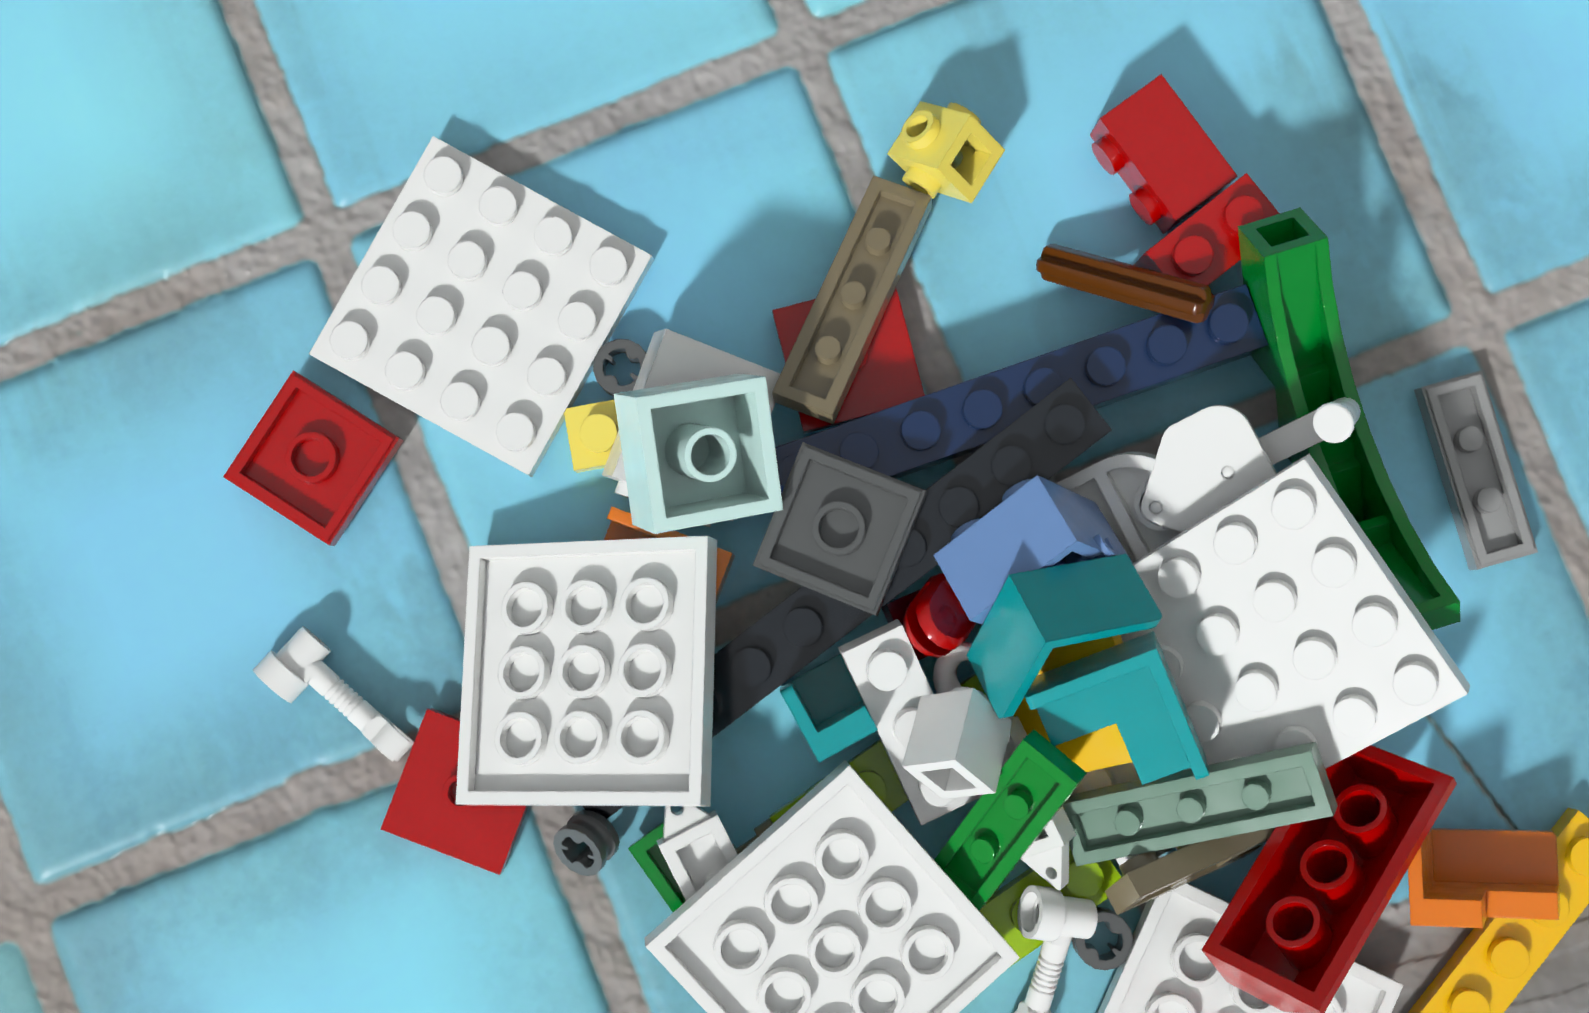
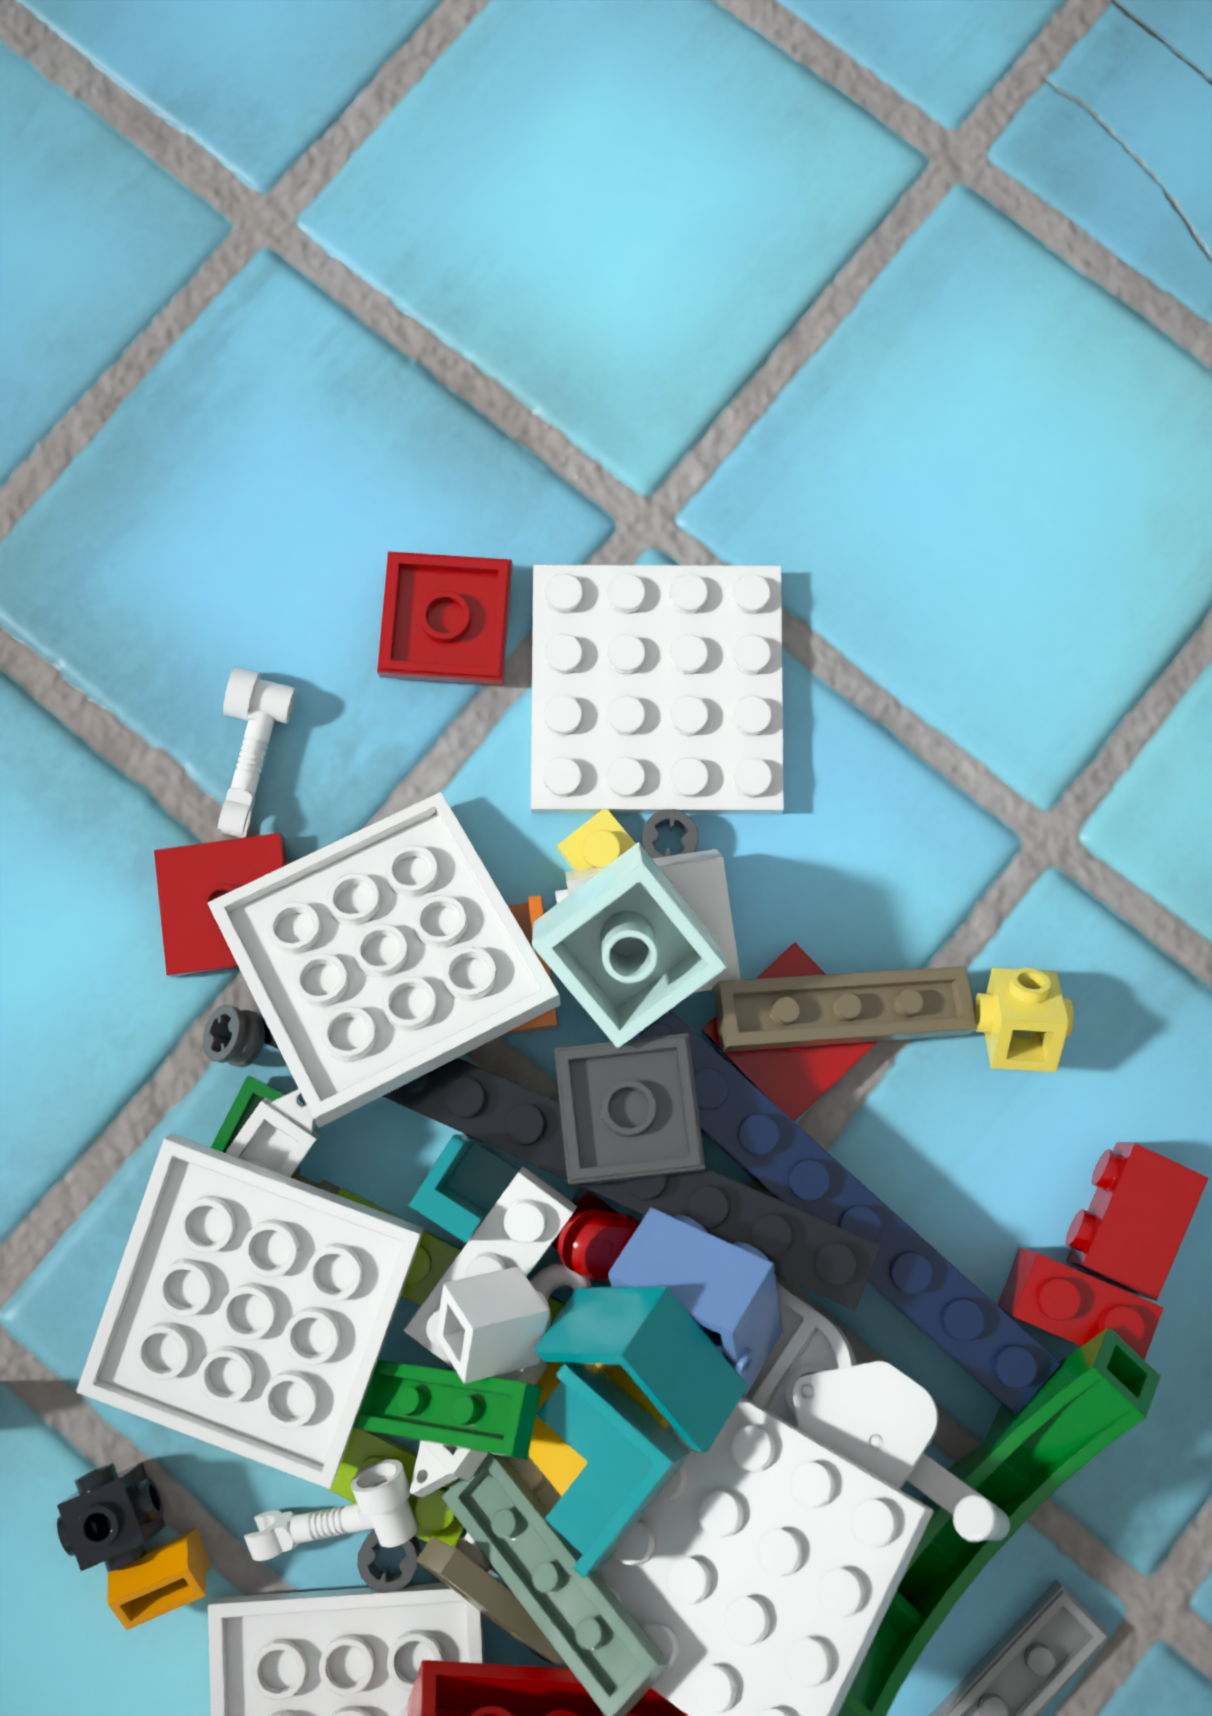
camera: 60 degrees right, 5 degrees down
(1126, 283) = (999, 1251): reddish brown axle -> none

